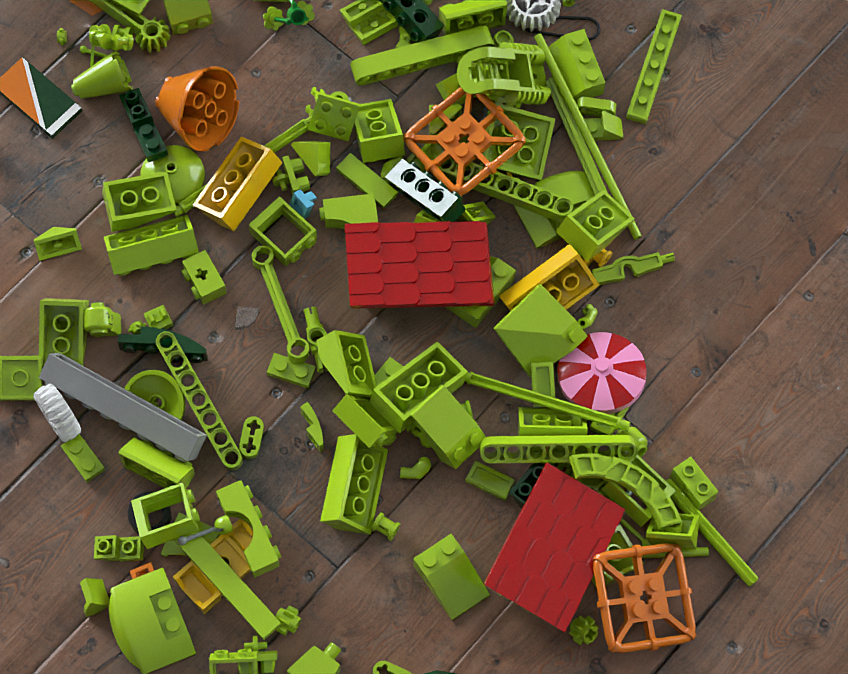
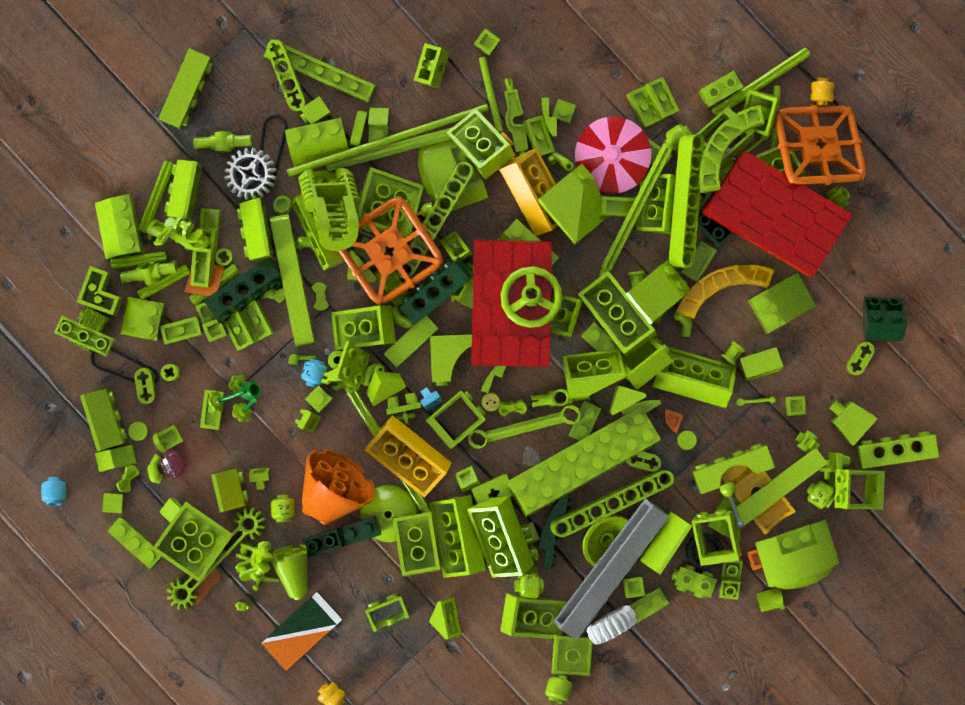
camera: 80 degrees left, 20 degrees up
(61, 179) = (387, 612): none -> lime window
(102, 438) = (634, 587): none -> lime plate
(113, 503) = (688, 579): none -> lime brick
(152, 285) = (501, 537): none -> lime slope
(170, 64) = (283, 508): none -> lime head
(203, 40) = (259, 476): none -> lime tile
(217, 249) = (467, 478): none -> lime plate
(225, 639) = (821, 494): none -> lime head
(244, 364) = (583, 462): none -> lime brick
(268, 83) = (308, 421): none -> lime tile
(279, 484) = (686, 440): none -> lime tile
(294, 91) = (319, 398): none -> lime brick
(300, 284) = (519, 406): none -> lime piece
(301, 467) = (673, 420): none -> orange tile
(305, 268) = (490, 402): none -> light yellow tile
(322, 401) = (624, 398): none -> lime slope
(323, 80) = (313, 372): none -> medium azure head
(329, 543) = (740, 401): none -> lime hinge
(330, 606) = (795, 405): none -> lime tile
(334, 147) = (369, 371): none -> lime arm
(334, 264) = (497, 371): none -> lime slope
(335, 65) = (294, 359): none -> lime hand
(375, 559) = (761, 364): none -> lime hinge
(400, 88) = (321, 303): none -> lime piece
(410, 335) = (566, 318): none -> lime slope
(428, 279) = (531, 288): none -> lime piece
(470, 504) = (720, 280): none -> yellow tile
(610, 62) = (315, 111): none -> lime brick
(613, 292) = (539, 135): none -> lime plate
(629, 302) = (551, 122): none -> lime slope
(642, 28) = (289, 74): none -> lime beam
(645, 318) = (564, 111): none -> lime plate
(652, 240) = (490, 94): none -> lime bar
(668, 413) = (652, 102): none -> lime slope
(675, 172) = (431, 65): none -> lime brick
(708, 600) = (822, 91): none -> yellow piece
(711, 229) = (487, 42): none -> lime plate

